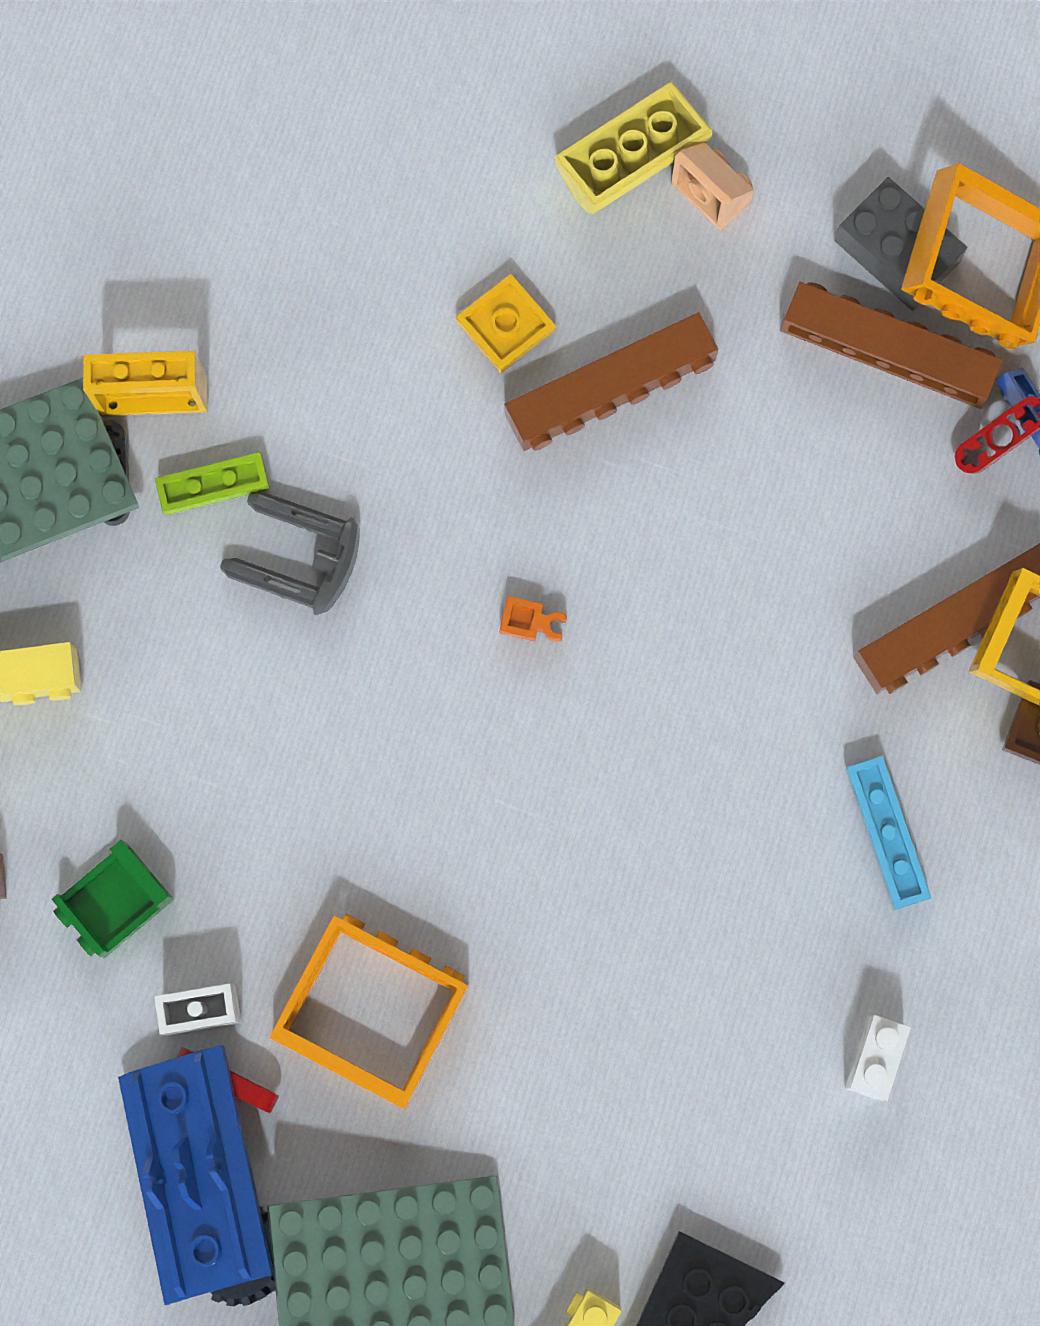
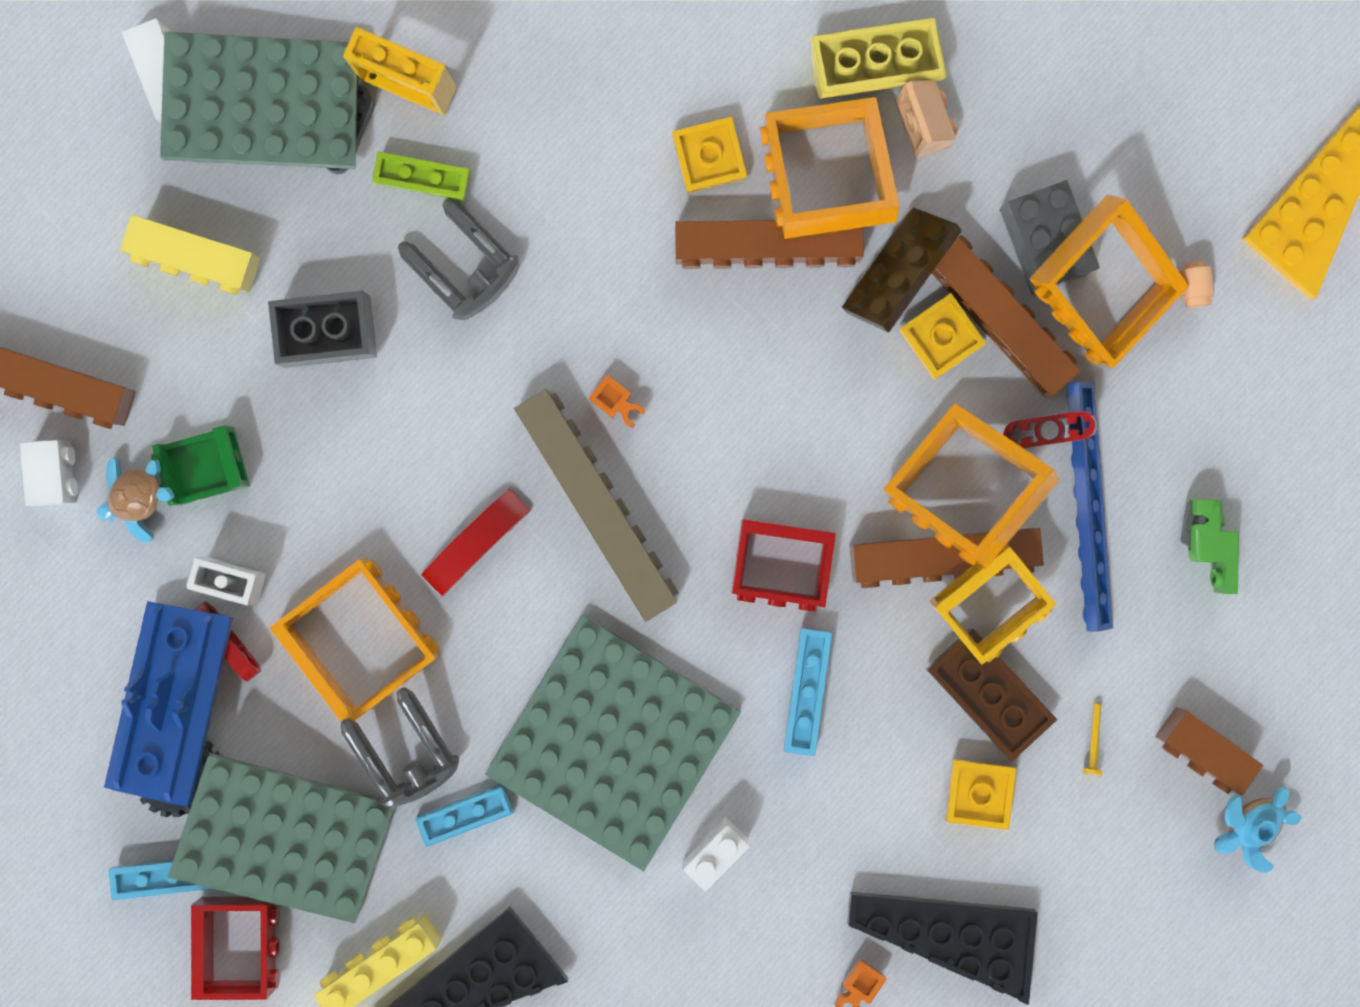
camera: 20 degrees right, 10 degrees up
(53, 966) = (133, 497): none -> medium nougat animal
(181, 689) = (322, 329): none -> dark grey brick
(449, 843) = (475, 542): none -> red slope
(514, 1134) = (420, 782): none -> dark grey piece
(562, 739) = (596, 505): none -> dark tan brick
(579, 1151) = (464, 815): none -> medium azure tile
(669, 323) = (835, 218): none -> light orange window
(705, 992) = (613, 743): none -> sand green plate
(763, 344) = (901, 269): none -> dark brown plate
(783, 671) = (778, 597): none -> red window
(840, 394) = (942, 336): none -> yellow plate
(902, 468) = (983, 554): none -> light orange window

